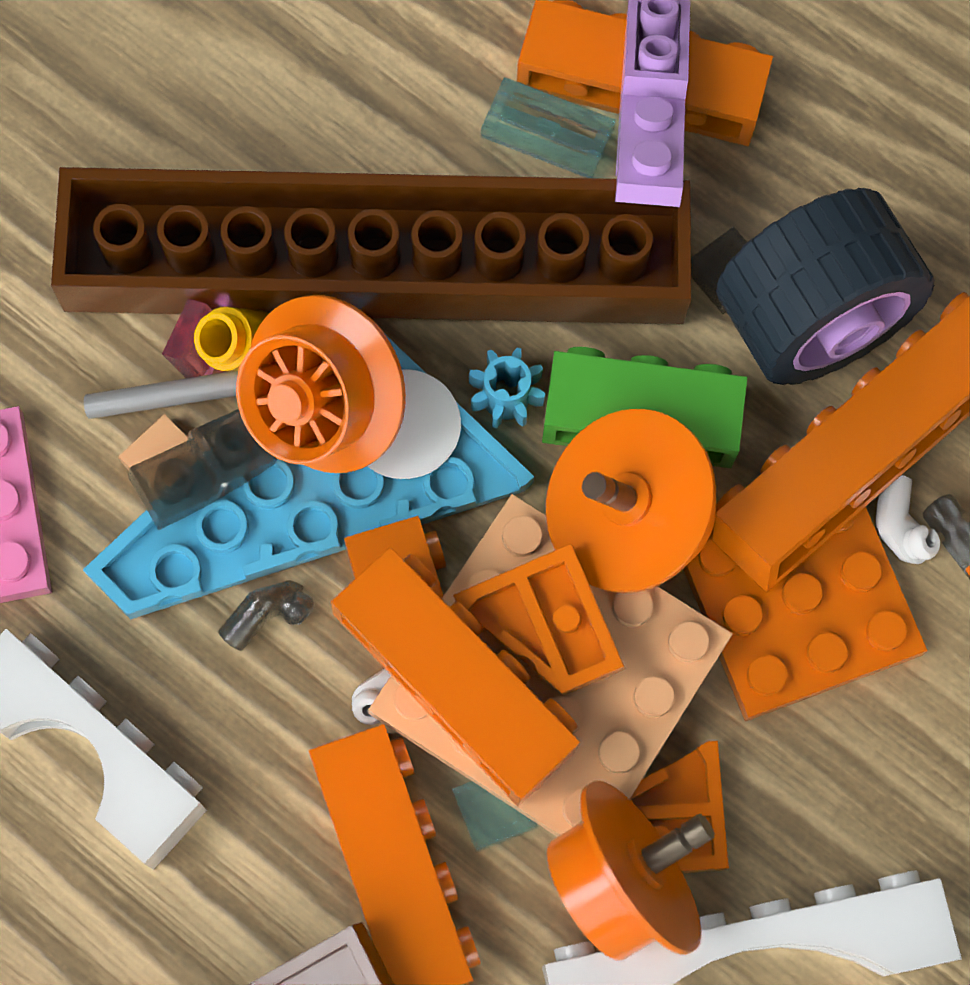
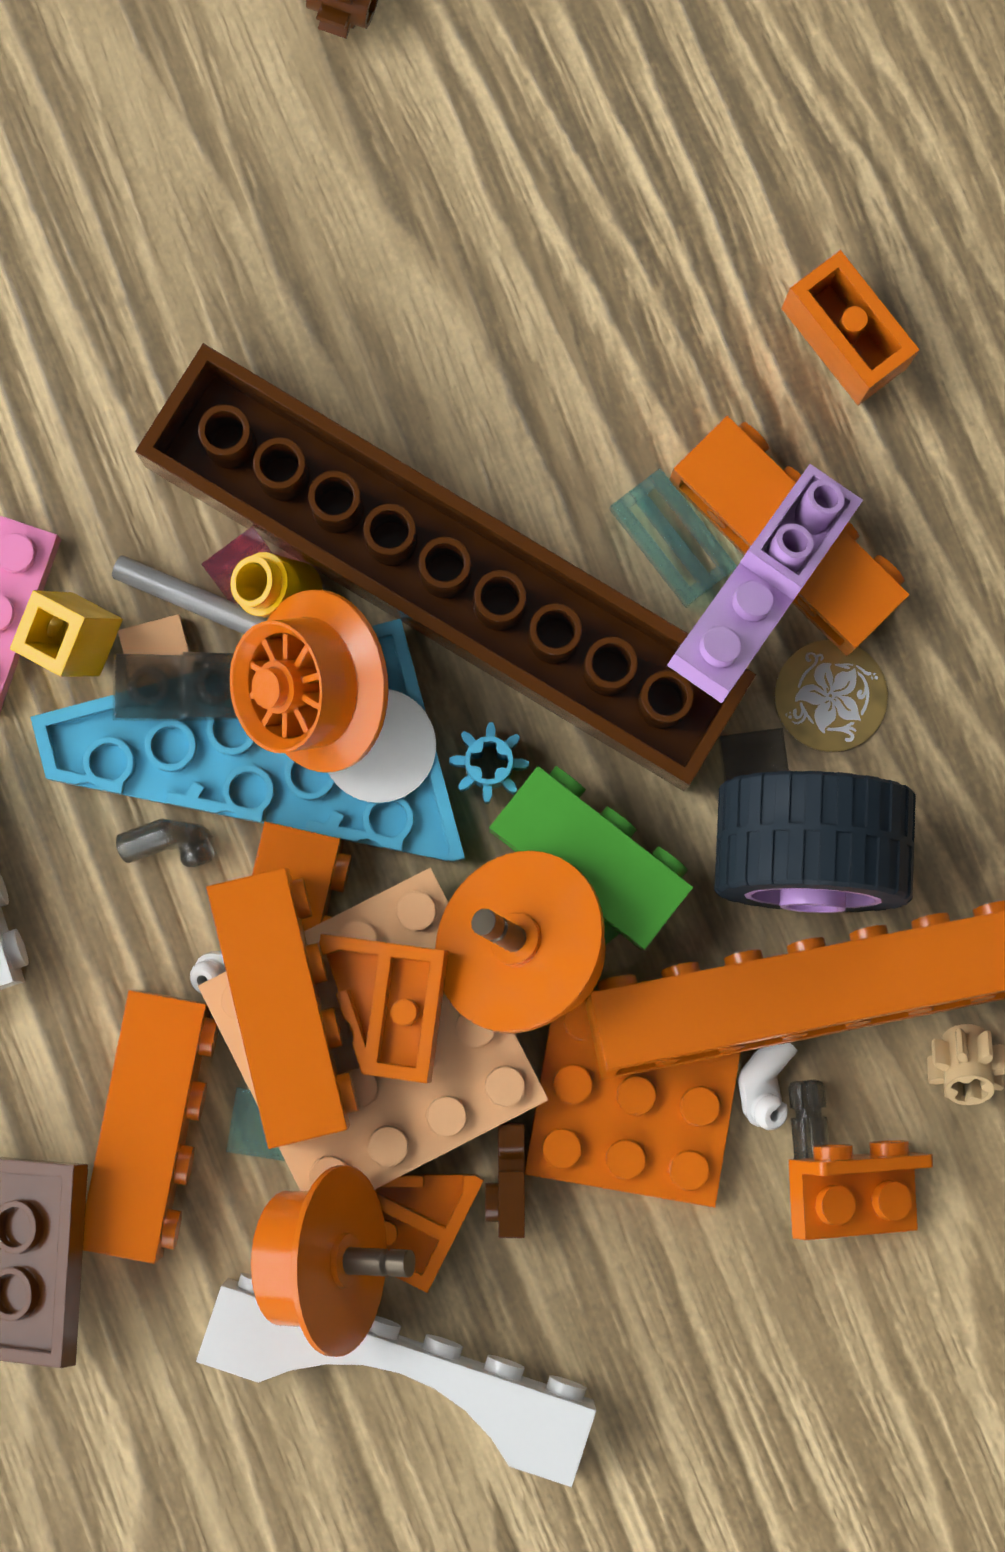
camera: 30 degrees right, 10 degrees up
(75, 477) = (66, 633): none -> yellow brick
(746, 742) = (507, 1198): none -> reddish brown plate
(754, 183) = (830, 697): none -> pearl gold sticker

